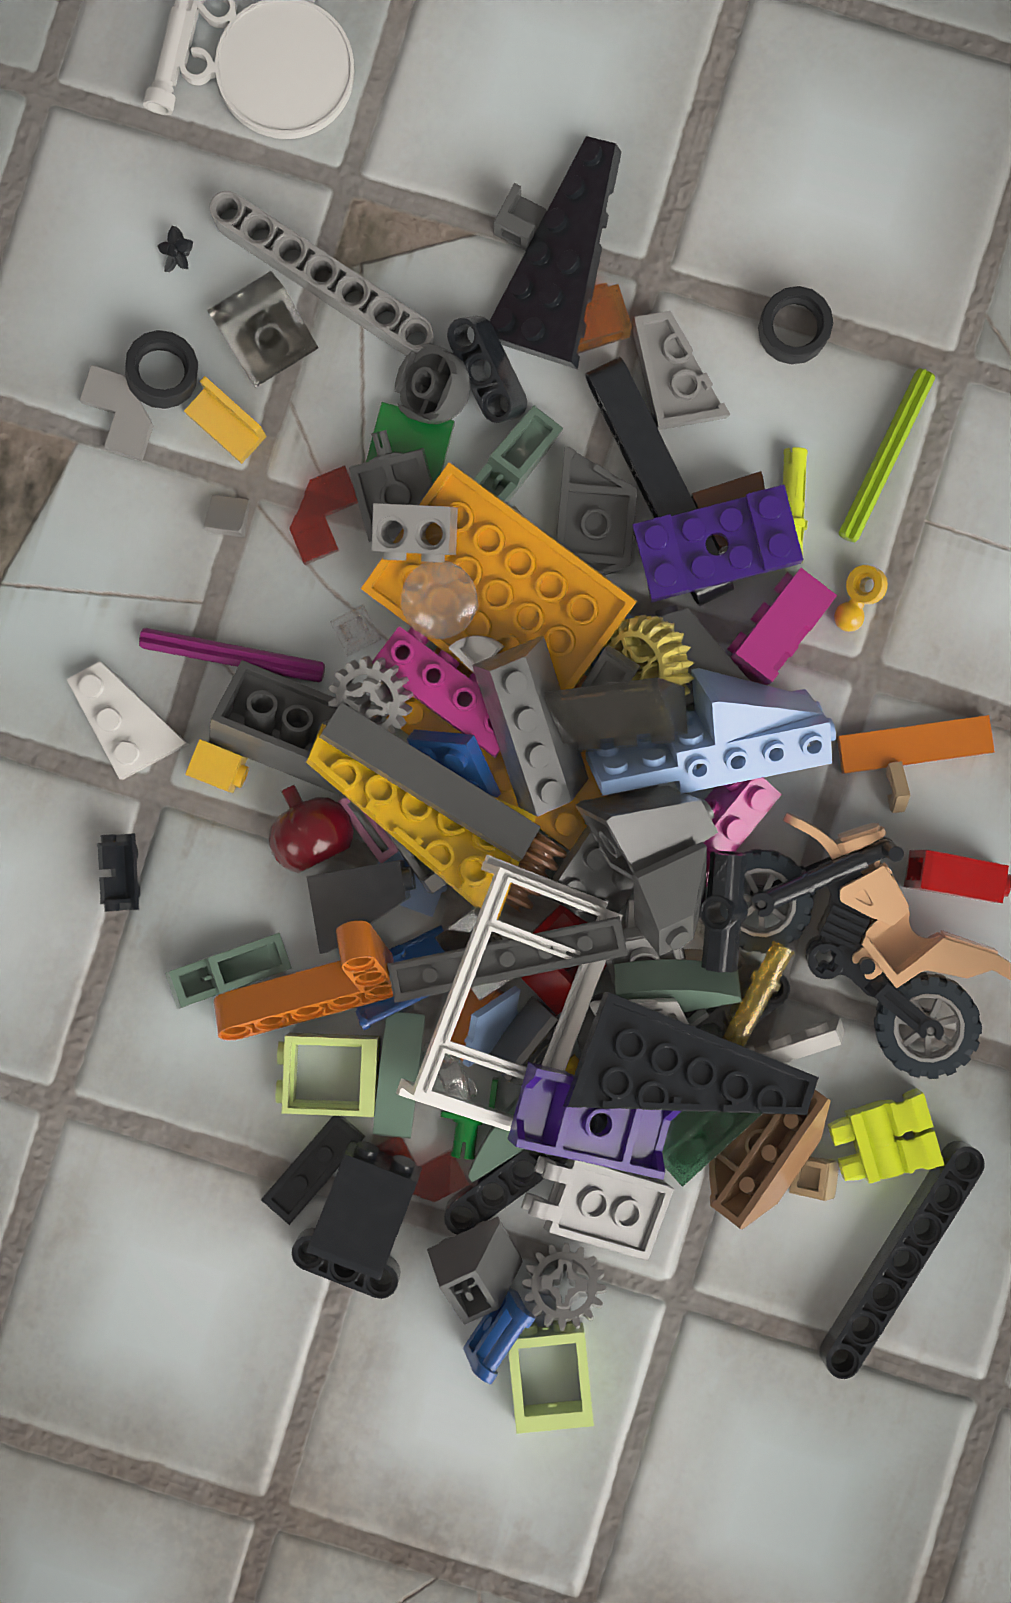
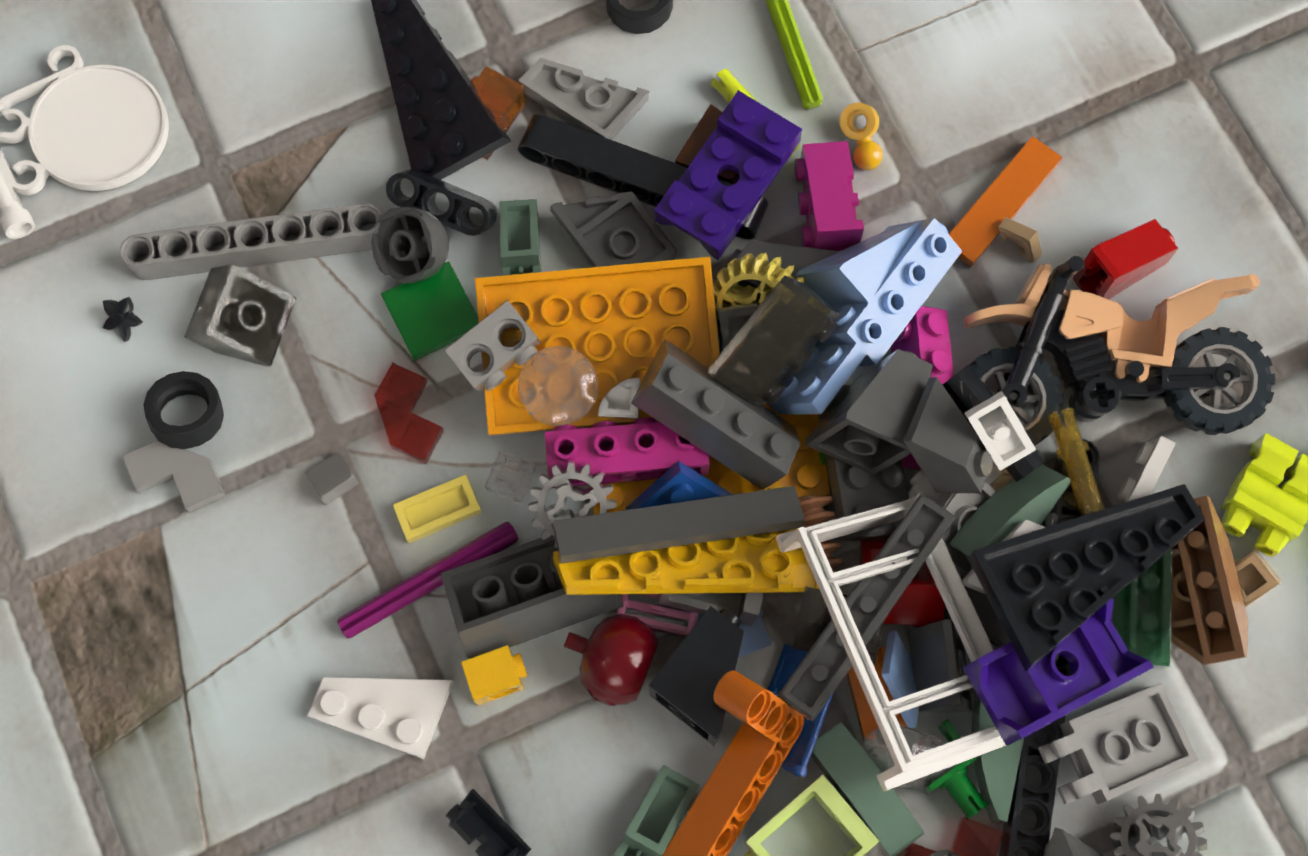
camera: 45 degrees left, 15 degrees down
(225, 421) = (268, 406): yellow panel -> none
(283, 607) = (437, 508): none -> light yellow tile
(390, 480) = (433, 335): dark grey plate -> none
(518, 219) = (371, 89): dark grey panel -> none
(713, 924) = (1000, 431): none -> white slope

